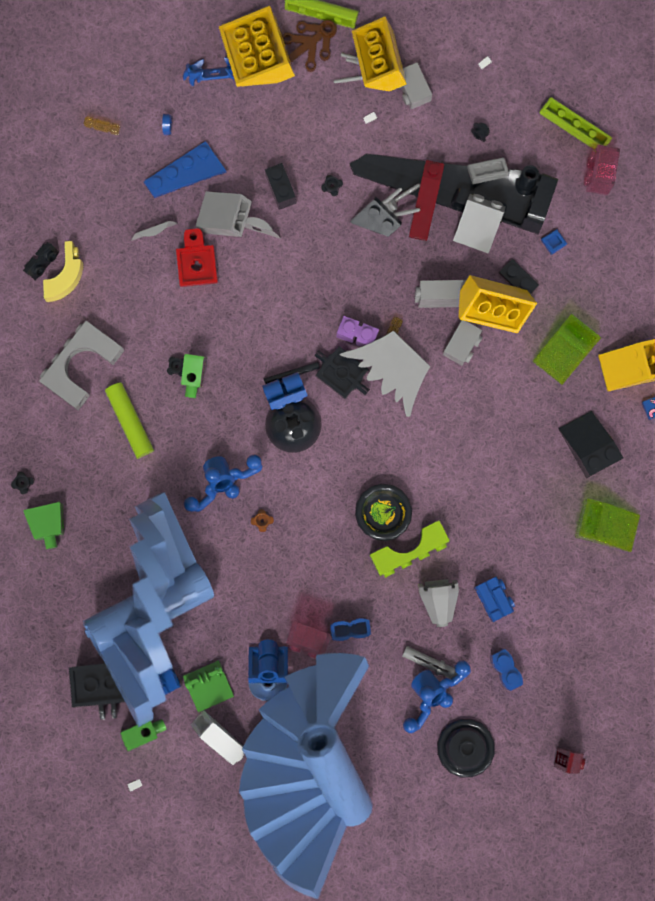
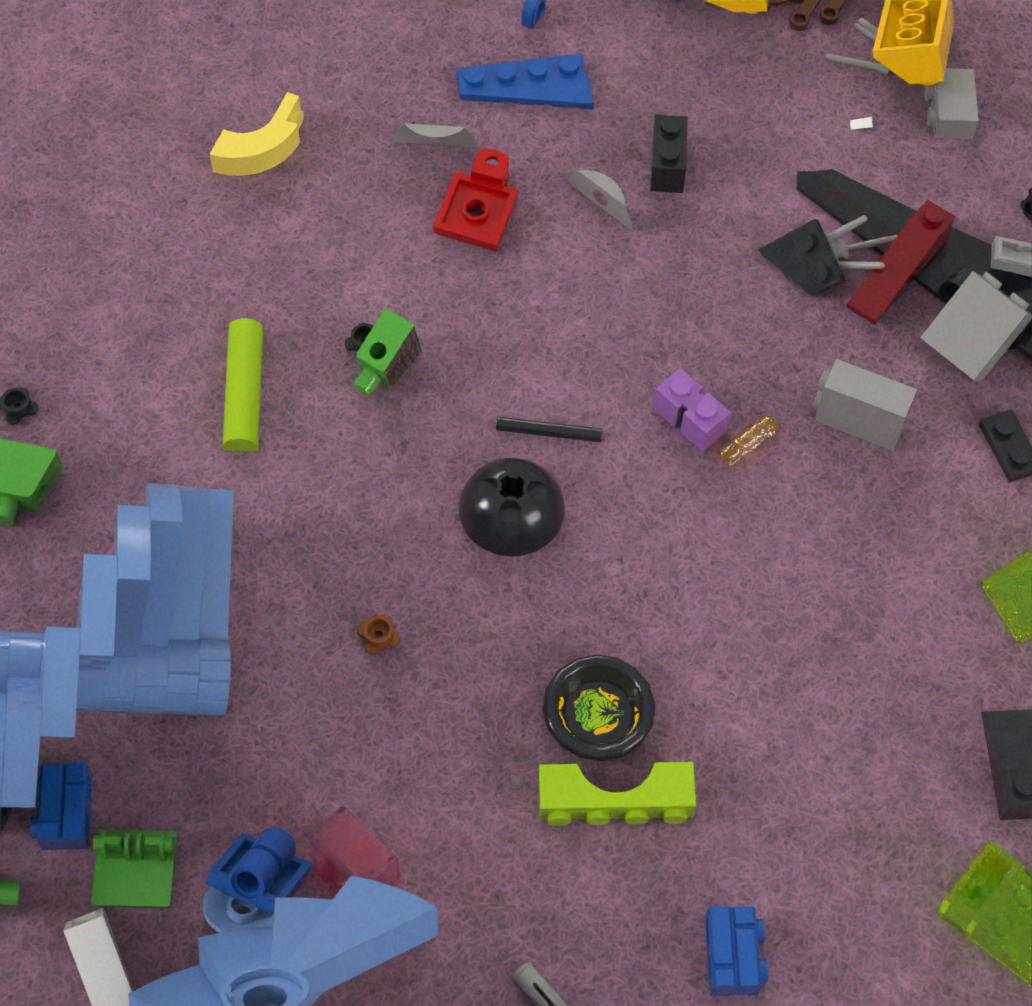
camera: 25 degrees right, 20 degrees down
(46, 255) = (237, 111): black hinge -> none
(86, 339) = (241, 241): light grey arch -> none
(221, 480) = (344, 530): blue wheel -> none
(223, 214) = (557, 151): light grey brick -> none
(282, 393) = (505, 440): blue plate -> none
(332, 190) = (757, 181): black plate -> none
(341, 373) = (635, 461): black plate -> none
(344, 630) = (448, 882): blue brick -> none
(396, 364) = (735, 483): light grey piece -> none
(439, 600) = (629, 904): light grey cone -> none
(462, 343) = (868, 499): light grey brick -> none
(494, 304) = (950, 452): yellow slope -> none

